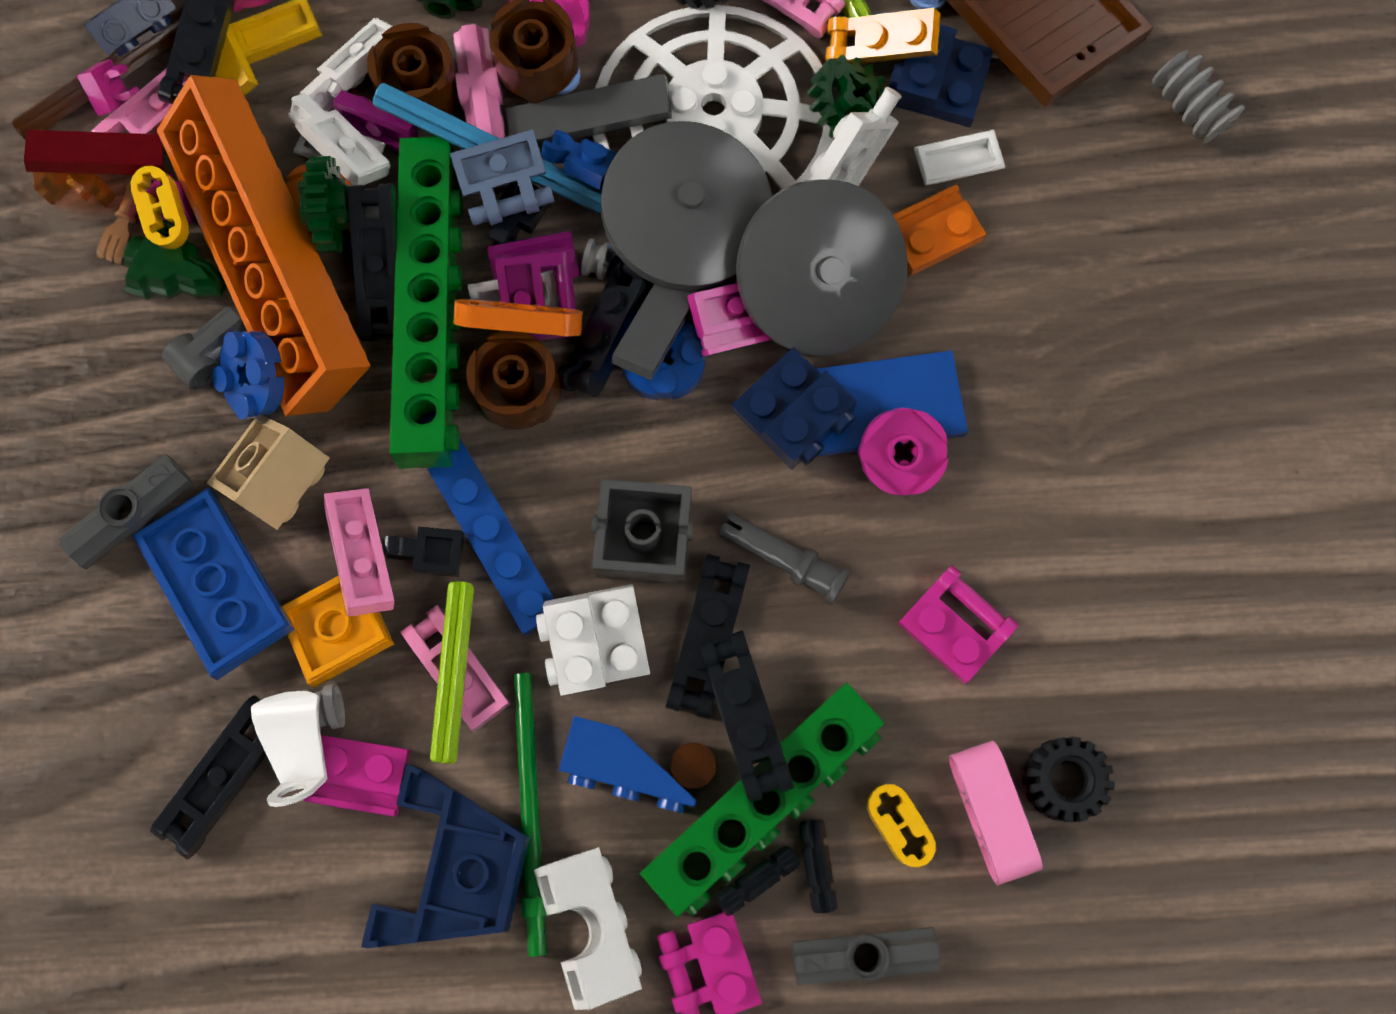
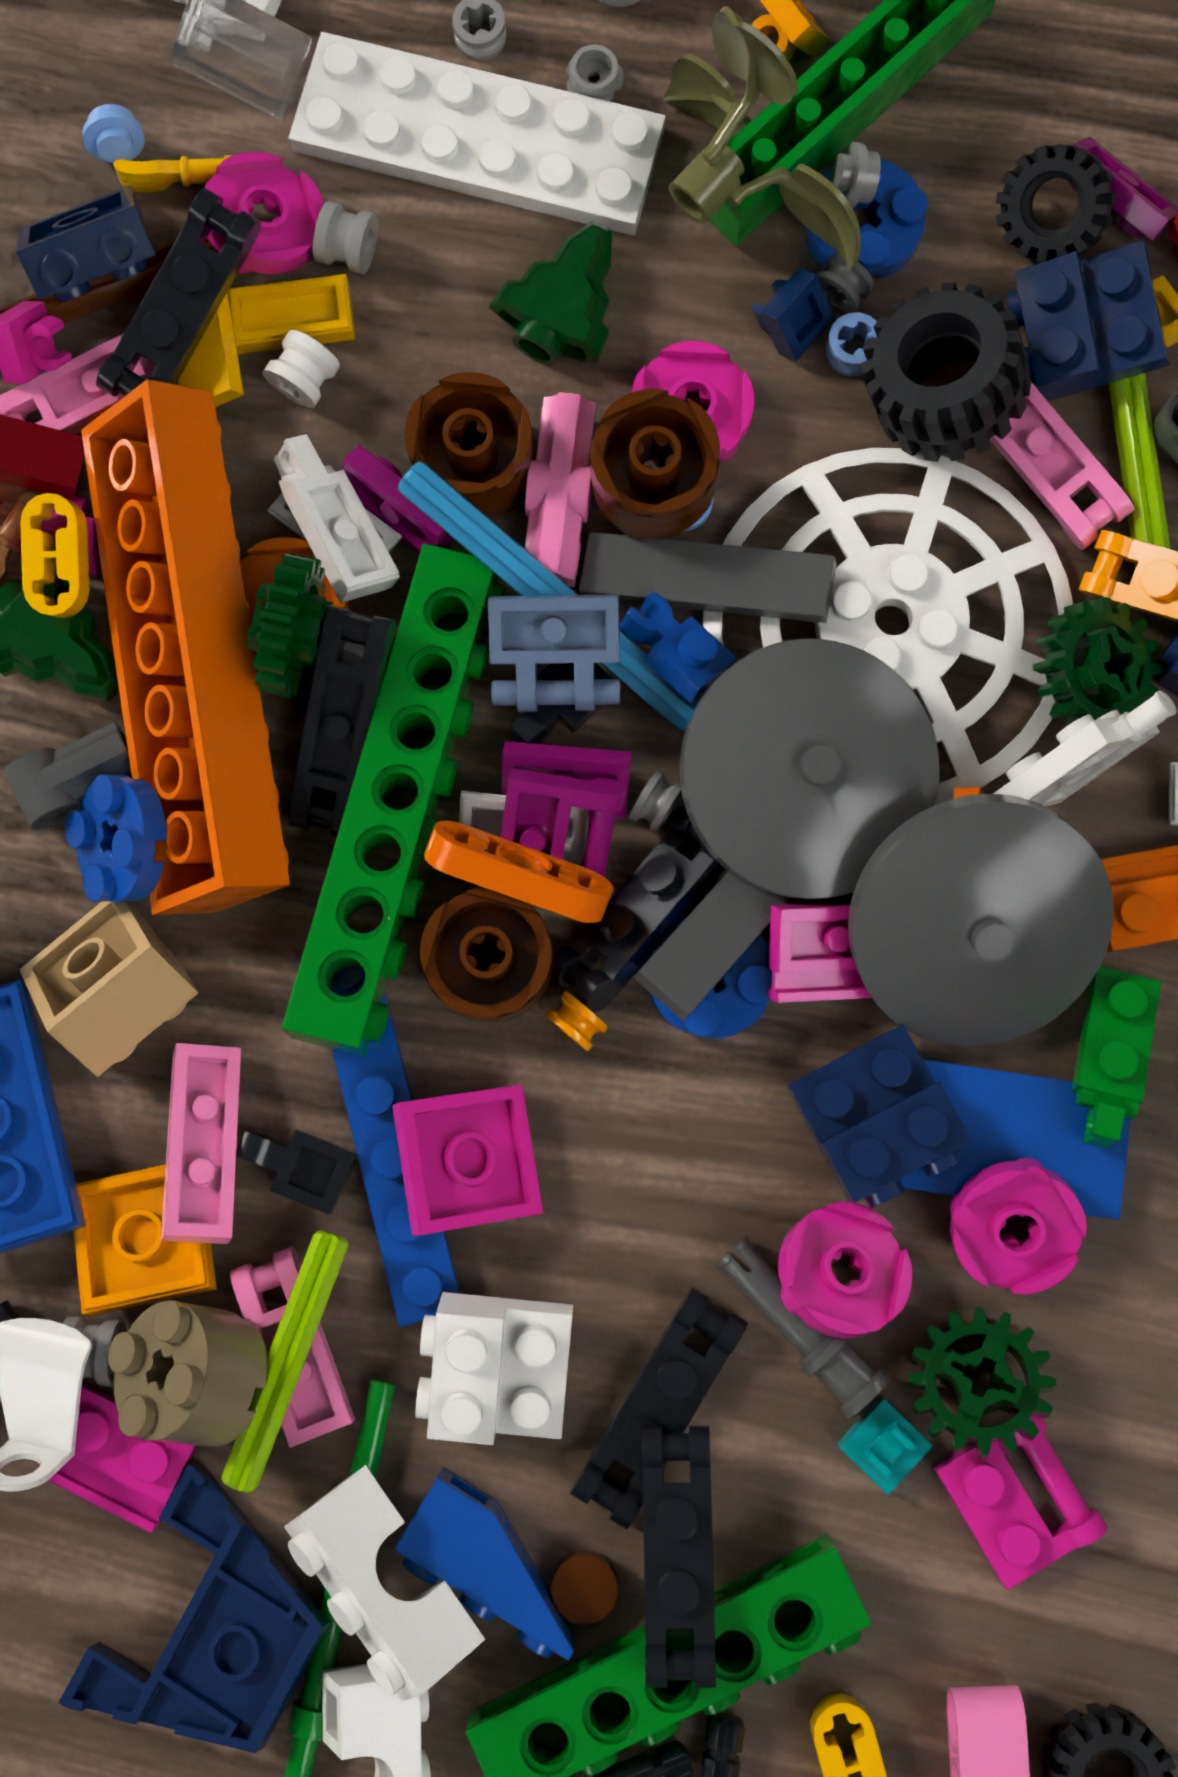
camera: 20 degrees right, 5 degrees up
(291, 58) = (301, 368): none -> white wheel
(346, 66) = (379, 401): white hinge -> none
(388, 697) = (187, 1374): none -> dark tan brick
(536, 512) = (467, 1159): none -> dark pink plate
(580, 819) = (408, 1640): none -> white arch
(584, 408) = (576, 1021): none -> light orange bush
(642, 531) = (609, 1238): dark grey brick -> none
(797, 532) = (812, 1287): none -> dark pink plate
(861, 617) = (884, 1445): none -> teal tile
(891, 548) = (1011, 1393): none -> dark green gear
(932, 328) = (1114, 1051): none -> green hinge

